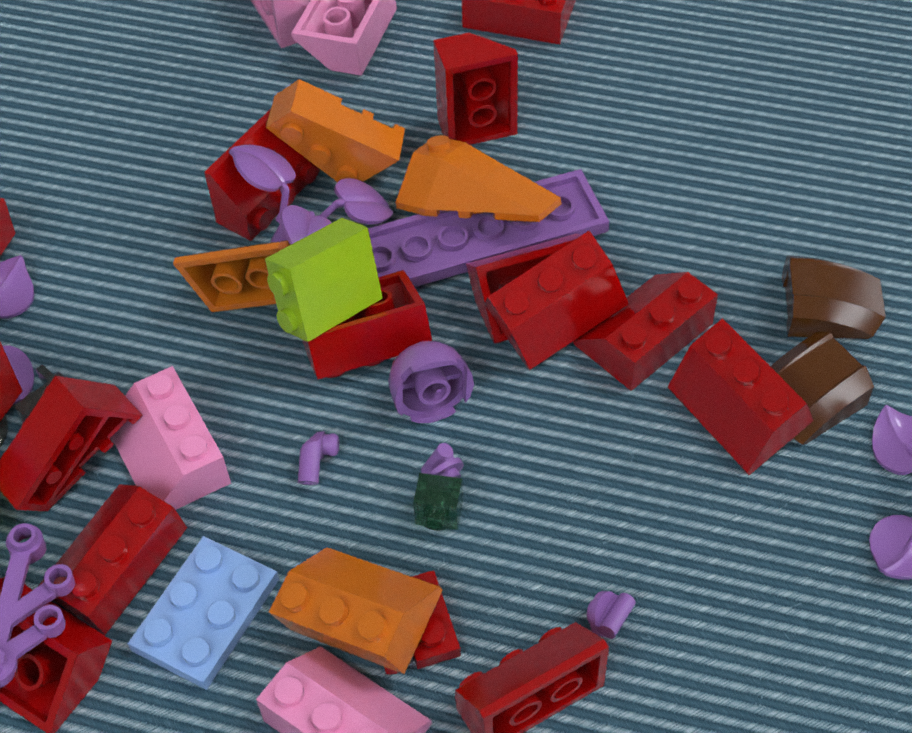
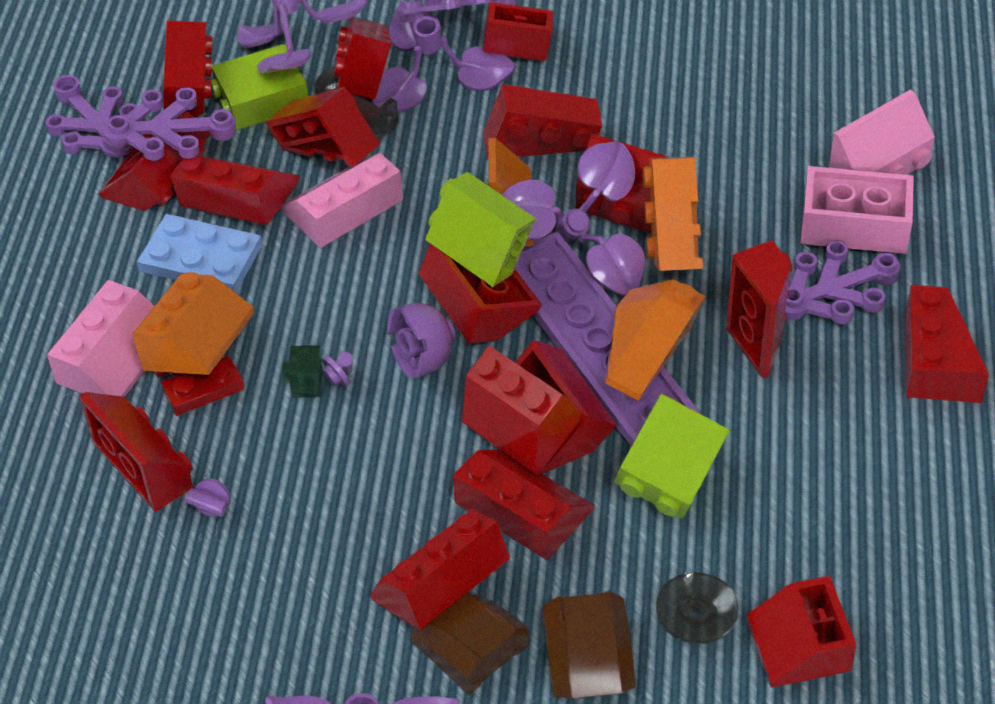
camera: 80 degrees right, 5 degrees down
(129, 244) = (541, 121): none -> red wedge
(311, 454) = (348, 286): medium lavender arm -> none
(412, 29) = (882, 271): none -> medium lavender plant
(627, 195) = (671, 456): none -> lime brick
(793, 210) = (697, 594): none -> clear smoke dish
(830, 140) = (802, 633): none -> red slope

